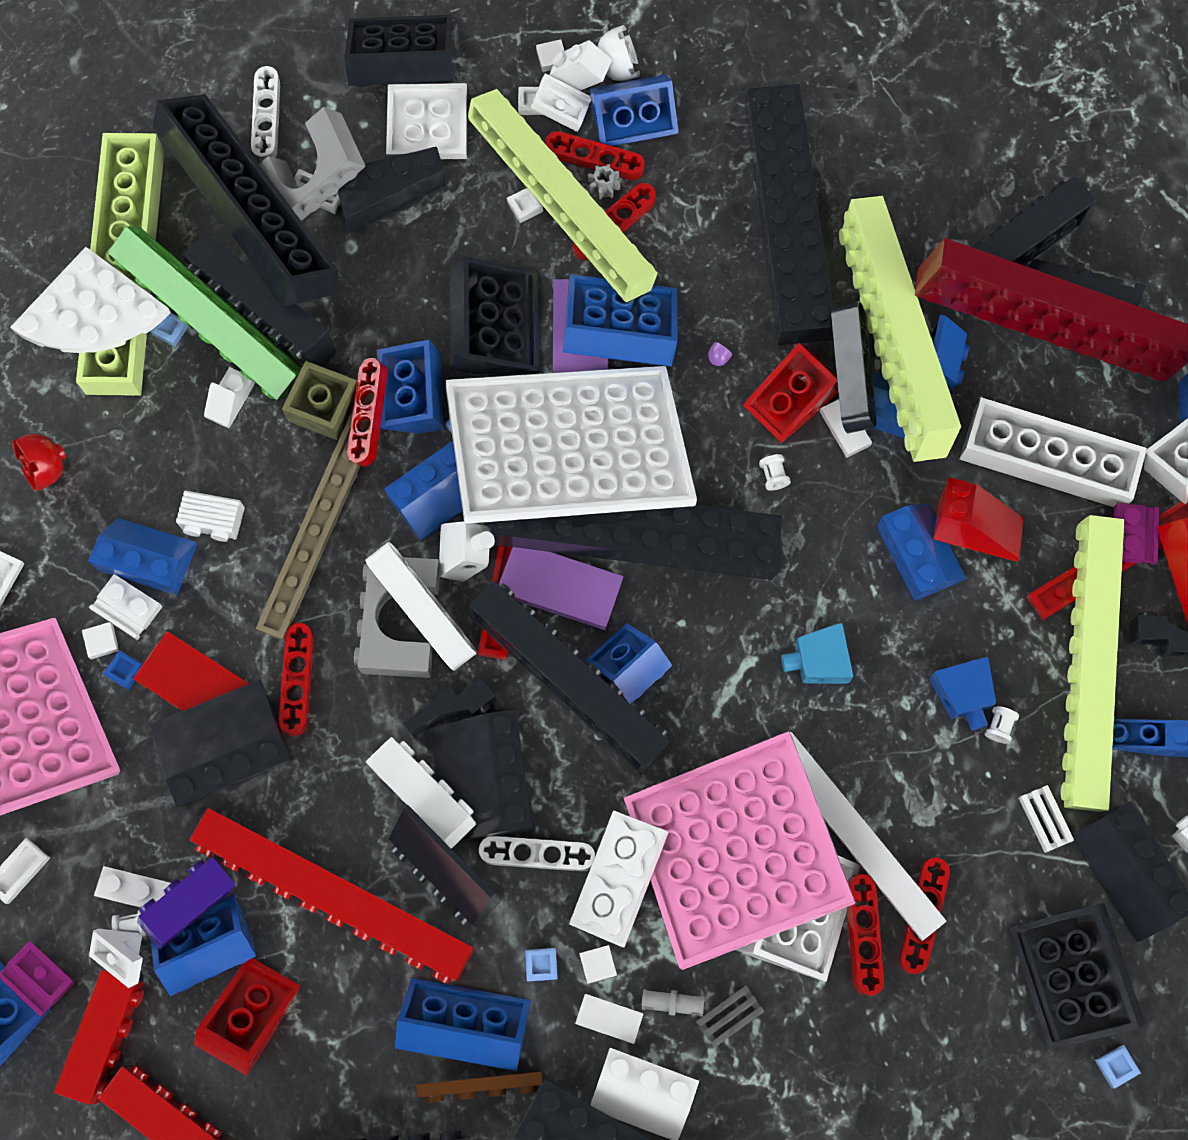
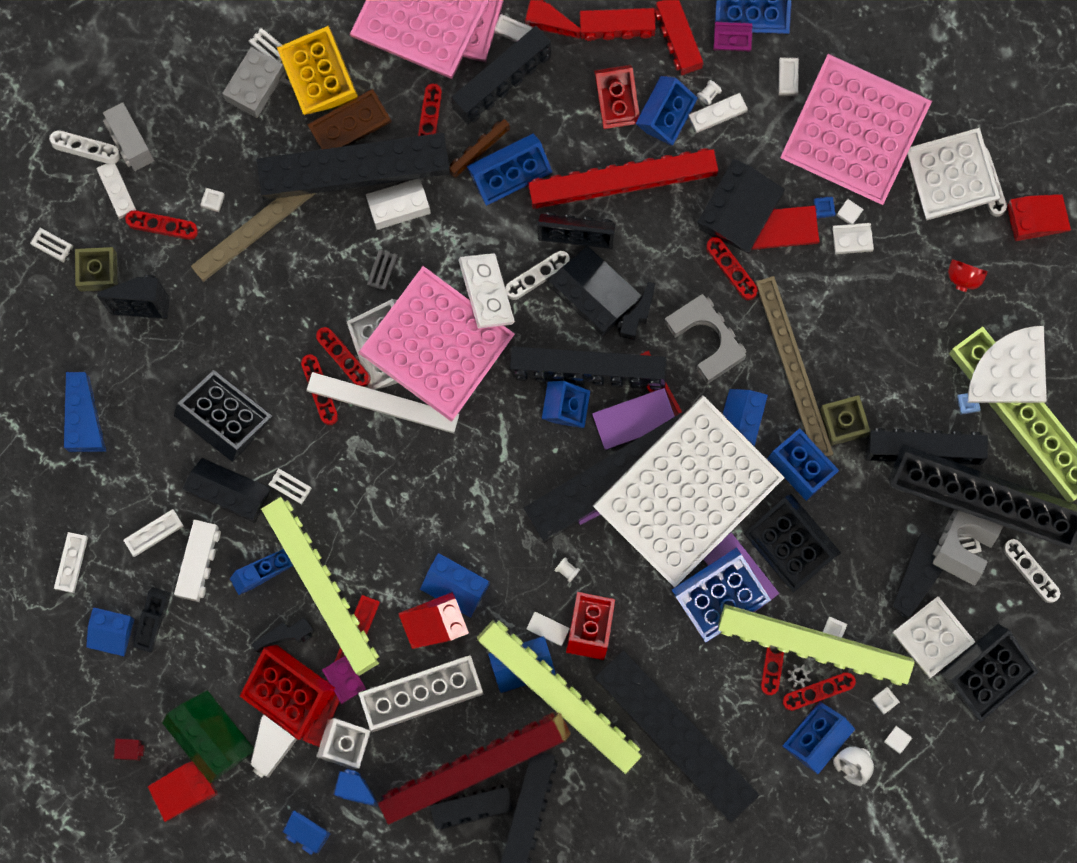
camera: 145 degrees right, 5 degrees up
(118, 954) = (702, 74): white slope -> none
(143, 555) = (867, 270): blue slope -> none
(184, 902) = (690, 120): dark purple brick -> none
(205, 312) = (949, 416): brick -> none
(210, 515) = (850, 316): white brick -> none
(227, 398) = (900, 389): white slope -> none
(362, 412) = (815, 429): red beam -> none
(421, 606) = (695, 347): white beam -> none
(421, 792) = (618, 257): white brick -> none
(463, 550) = (697, 389): white torso -> none
(541, 964) = (493, 225): light blue tile -> none
(561, 102) = (865, 708): white plate -> none
(581, 66) = (869, 734): white brick -> none
(598, 964) = (465, 245): white tile -> none
(609, 1018) = (440, 225): white tile -> none
(673, 1002) = (415, 254): light grey pin -> none
(719, 354) = (650, 618): medium lavender hinge -> none
(821, 657) = (467, 483): dark azure torso -> none
(853, 367) = (566, 655): beam -> none
(950, 349) = (520, 707): blue slope -> none
(966, 691) = (377, 522): blue torso -> none
(1002, 725) = (346, 518): white bush -> none
(1117, 1066) = (174, 387): light blue tile -> none

